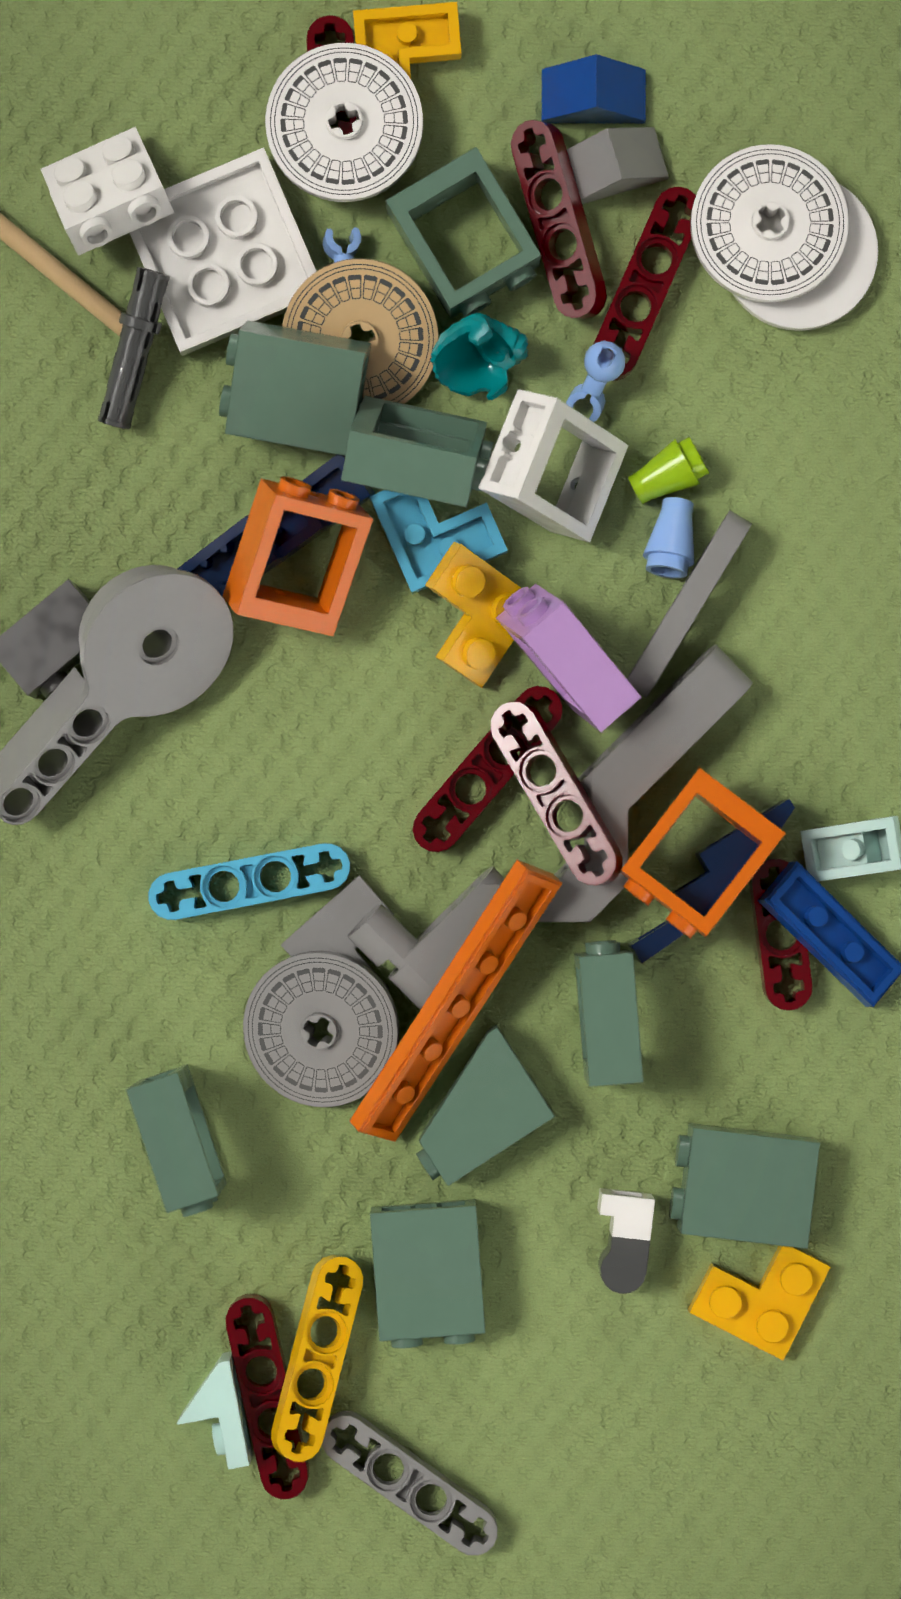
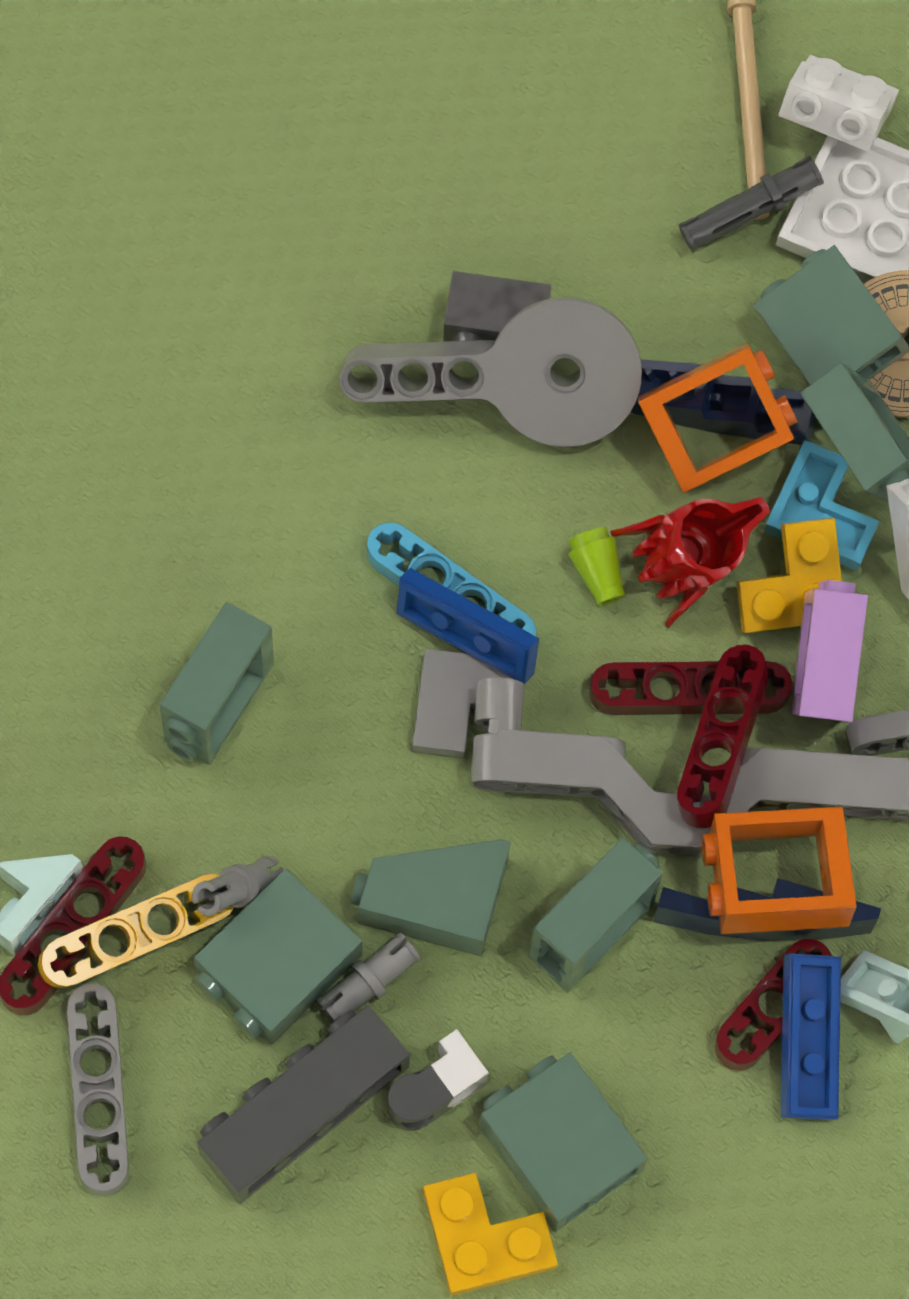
camera: 45 degrees right, 20 degrees down
(282, 1040) = (355, 711): light grey piece -> none
(294, 902) = (467, 626): none -> blue tile
(328, 750) = (598, 564): none -> lime cone
(351, 1259) = (235, 885): none -> light grey pin
(384, 668) = (694, 546): none -> red piece
(456, 1001) = (502, 794): orange tile -> none
(502, 1216) = (369, 978): none -> light grey pin
(554, 1348) = (302, 1103): none -> dark grey brick

